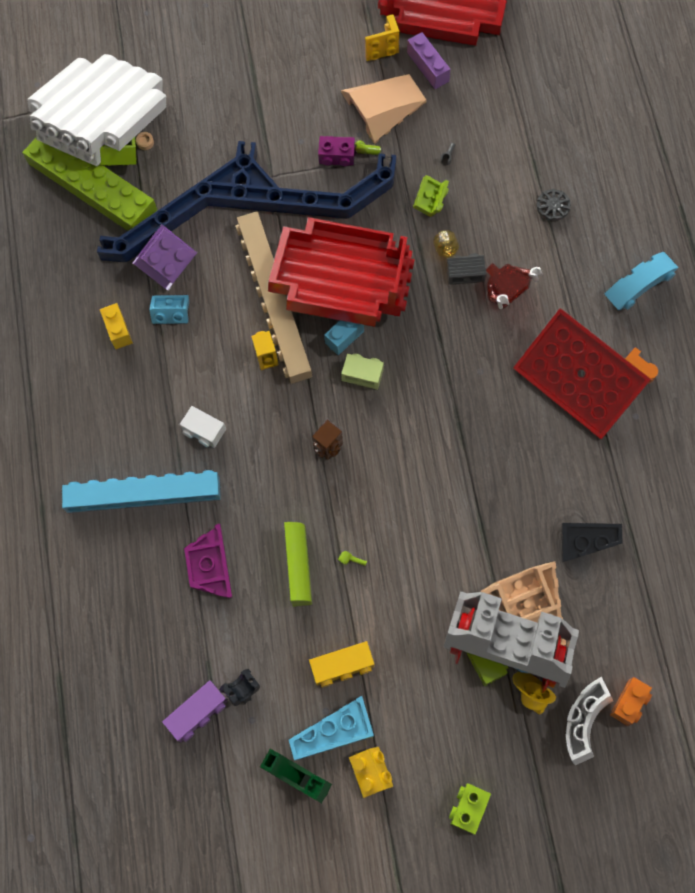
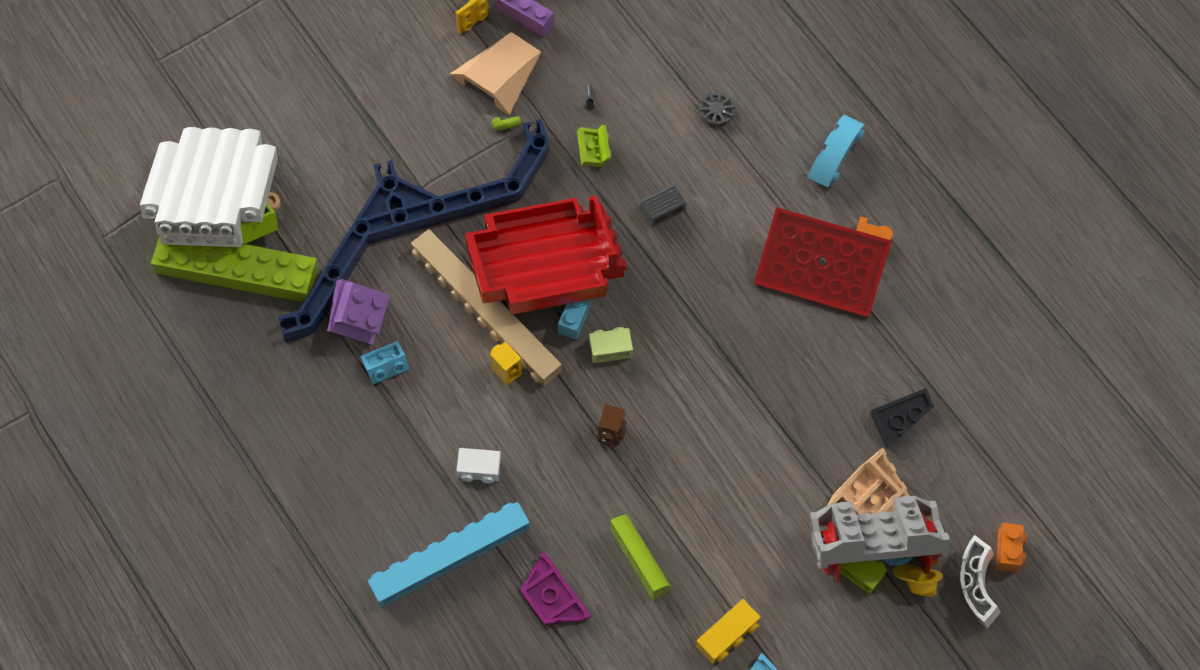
camera: 30 degrees left, 5 degrees down
(116, 326) = (339, 401): yellow brick -> none
(336, 150) = (476, 137): magenta brick -> none
(346, 556) = (682, 529): lime hand -> none
(446, 243) = (631, 187): clear yellow head -> none
(509, 283) = (711, 202): clear red torso -> none

